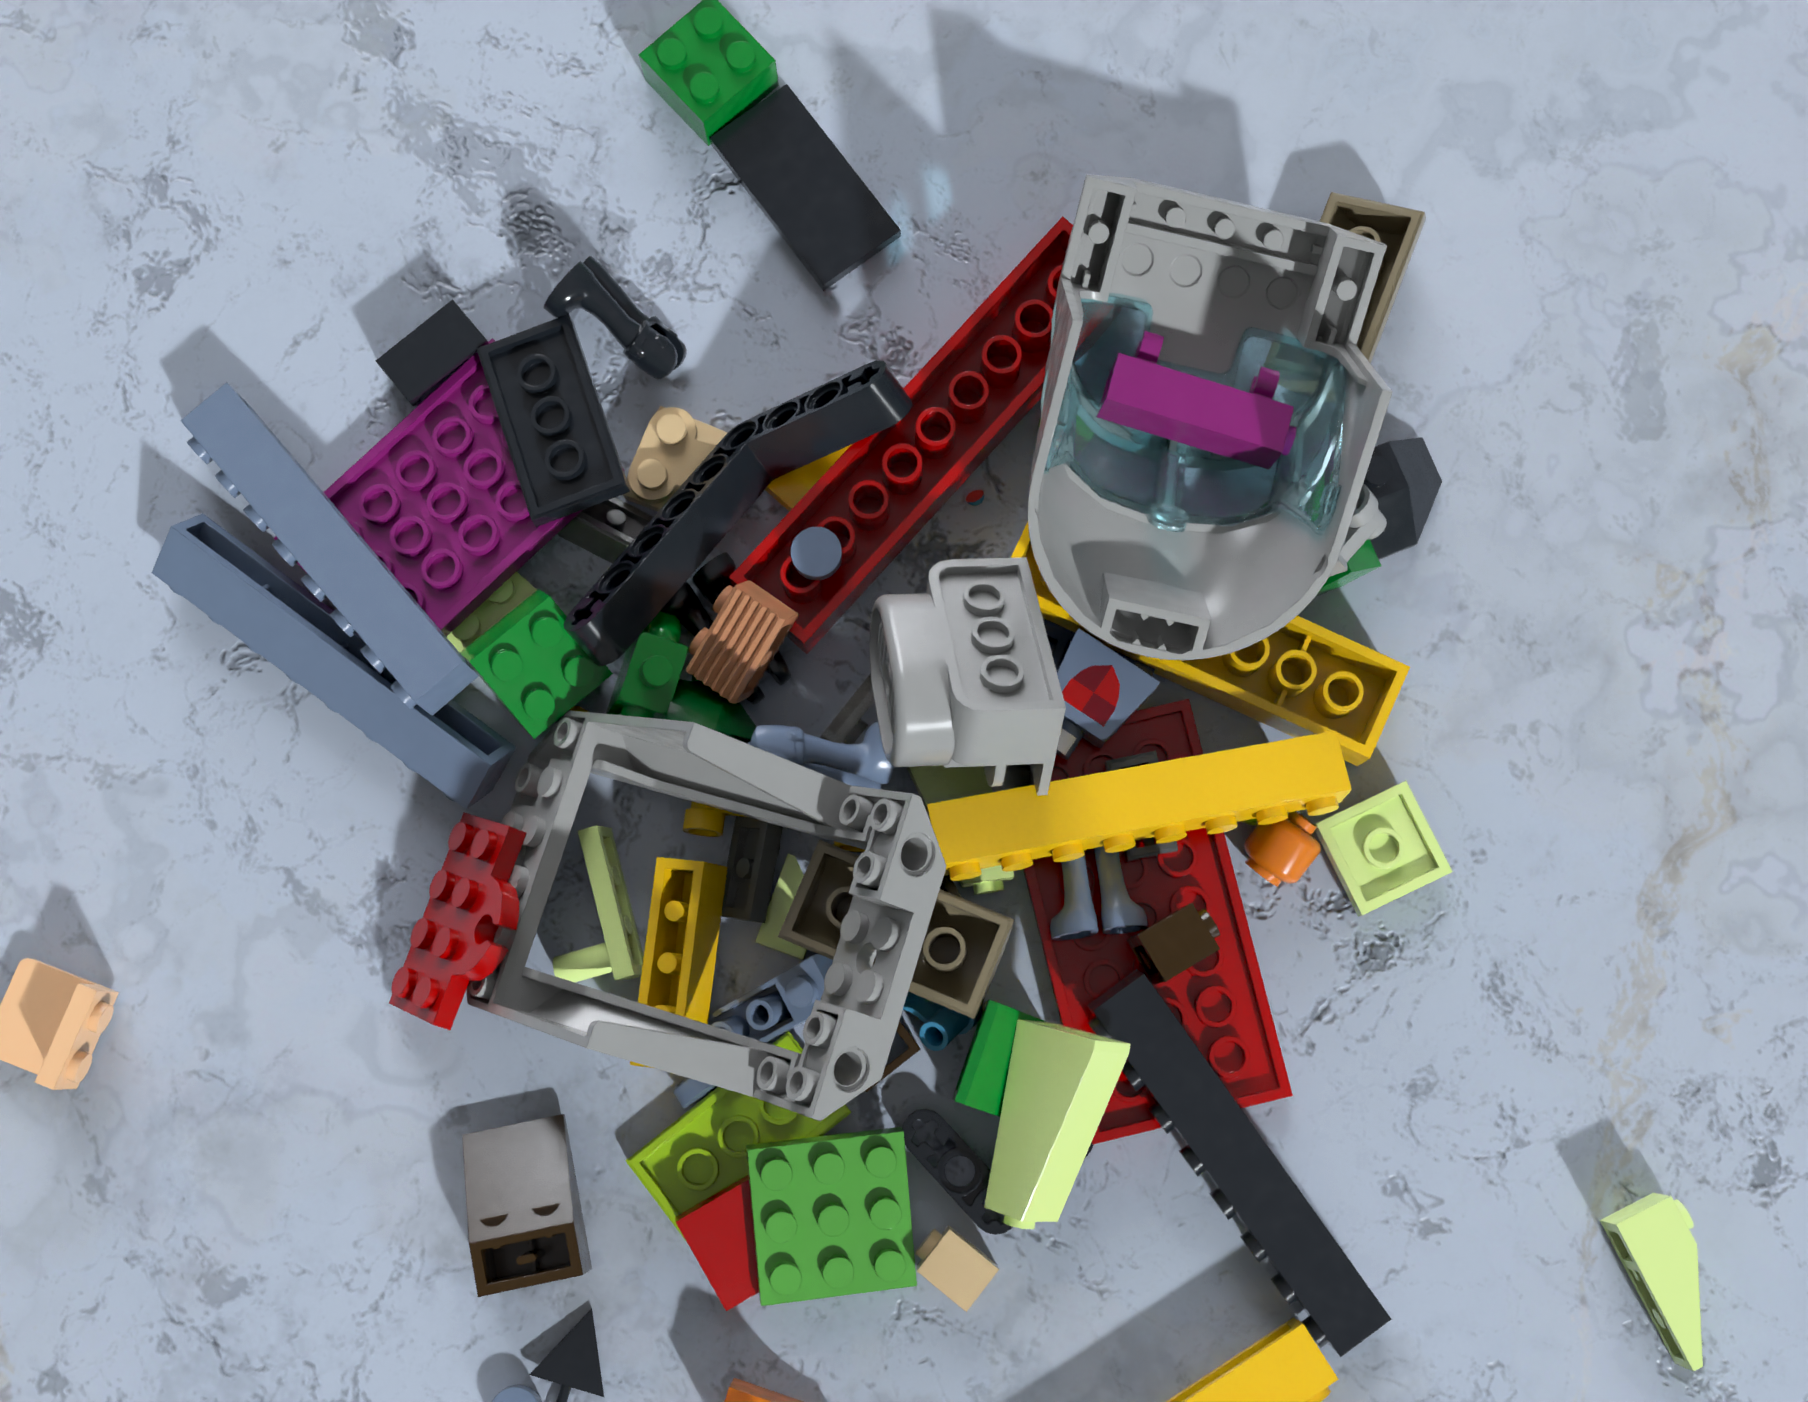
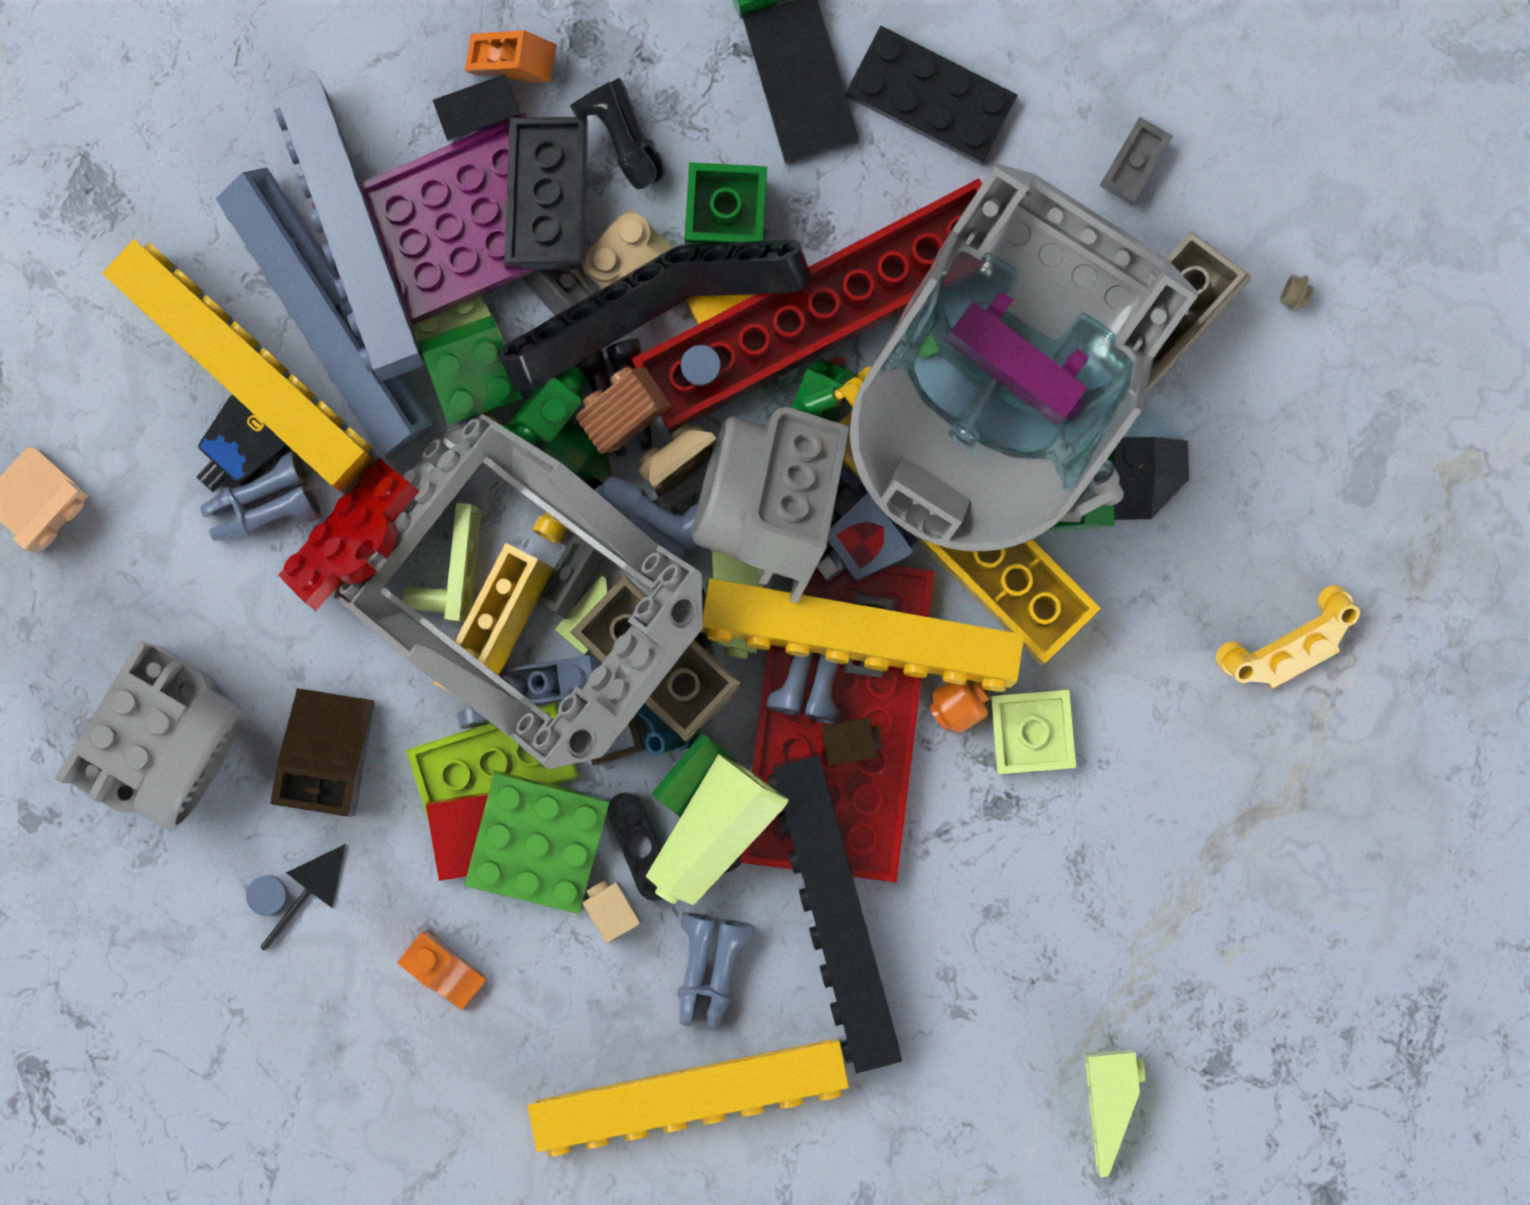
camera: 25 degrees right, 5 degrees up
(240, 758) = (231, 359): none -> yellow brick
(284, 862) = (238, 446): none -> torso
(300, 1269) = (154, 738): none -> light grey brick
(382, 903) = (298, 502): none -> sand blue piece
(458, 270) = (513, 53): none -> orange arch
(771, 354) = (725, 203): none -> green brick
(830, 677) = (678, 459): none -> tan slope
(965, 151) = (931, 95): none -> black plate
(978, 524) = (826, 388): none -> green torso
(1076, 1248) = (731, 937): none -> sand blue piece
(1232, 139) = (1136, 160): none -> flat silver plate
(1478, 220) = (1296, 292): none -> dark tan plate
(1653, 632) = (1297, 649): none -> yellow plate

